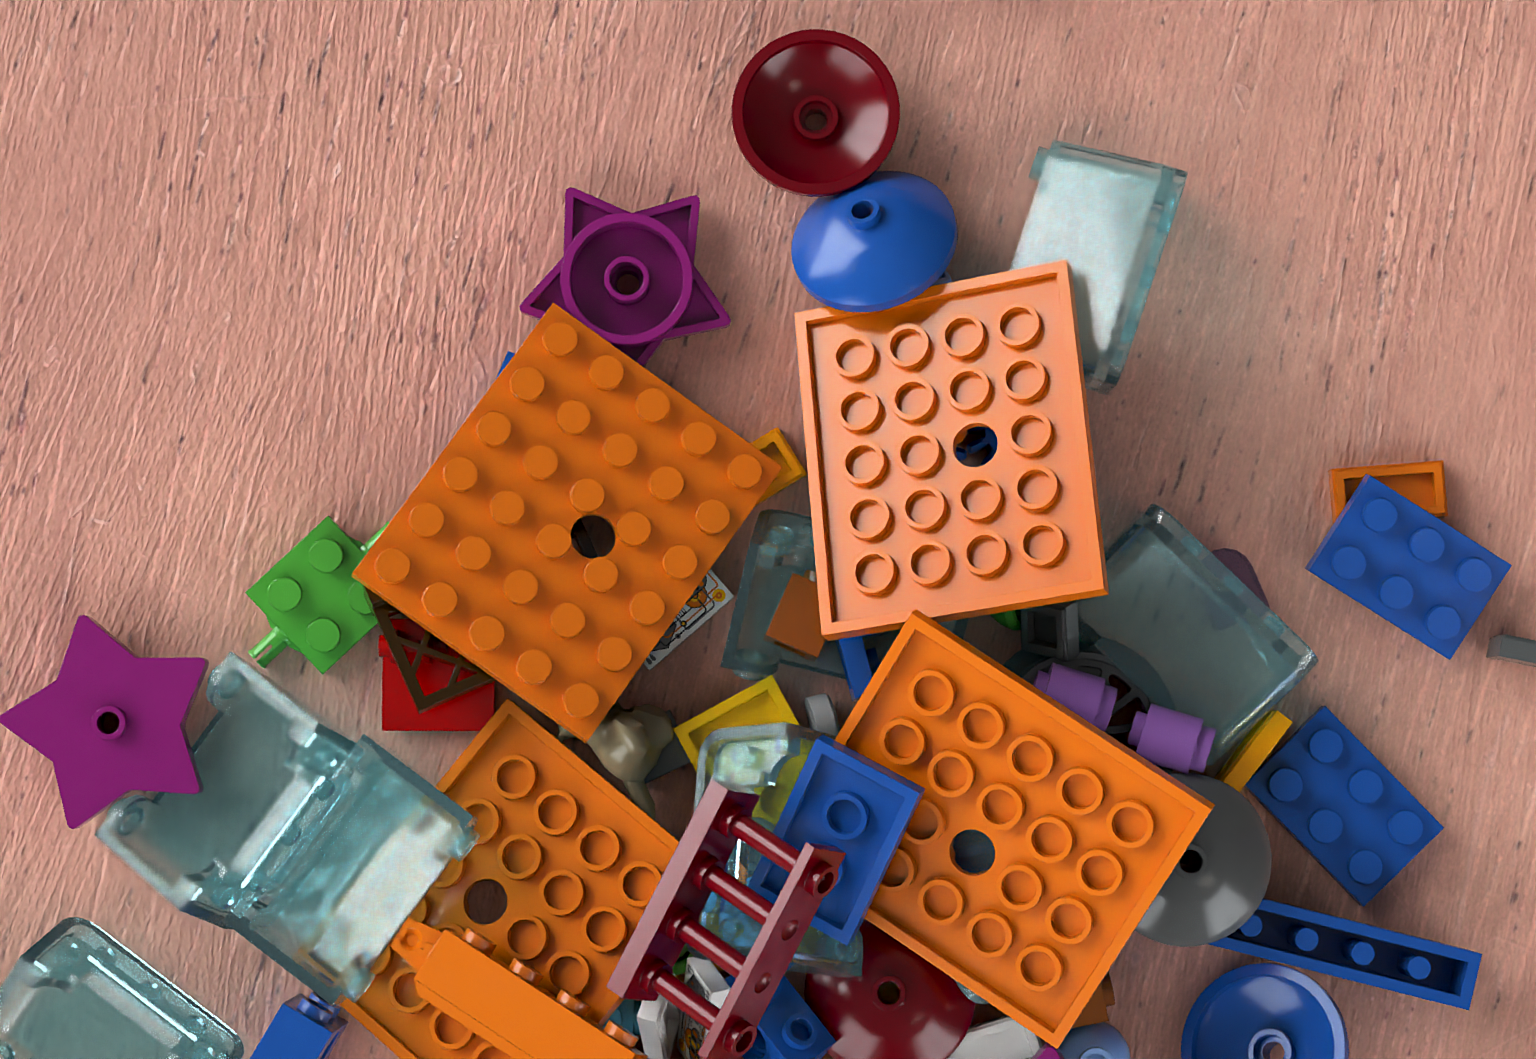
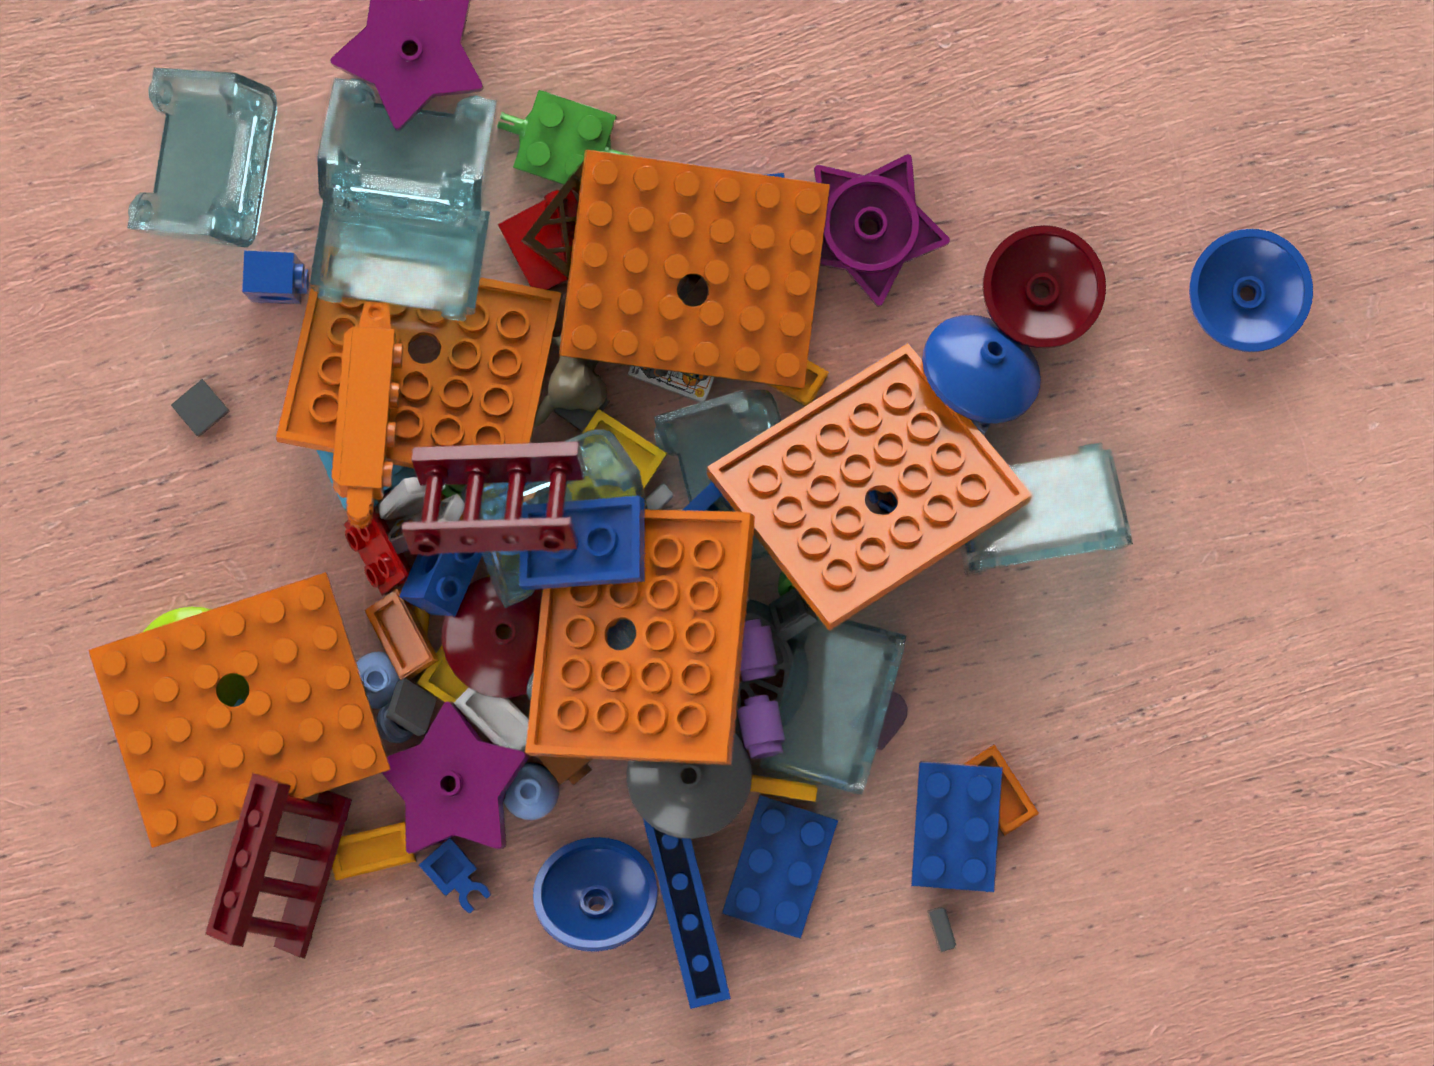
camera: 55 degrees right, 0 degrees up
(797, 618) = (708, 447): dark orange brick -> none

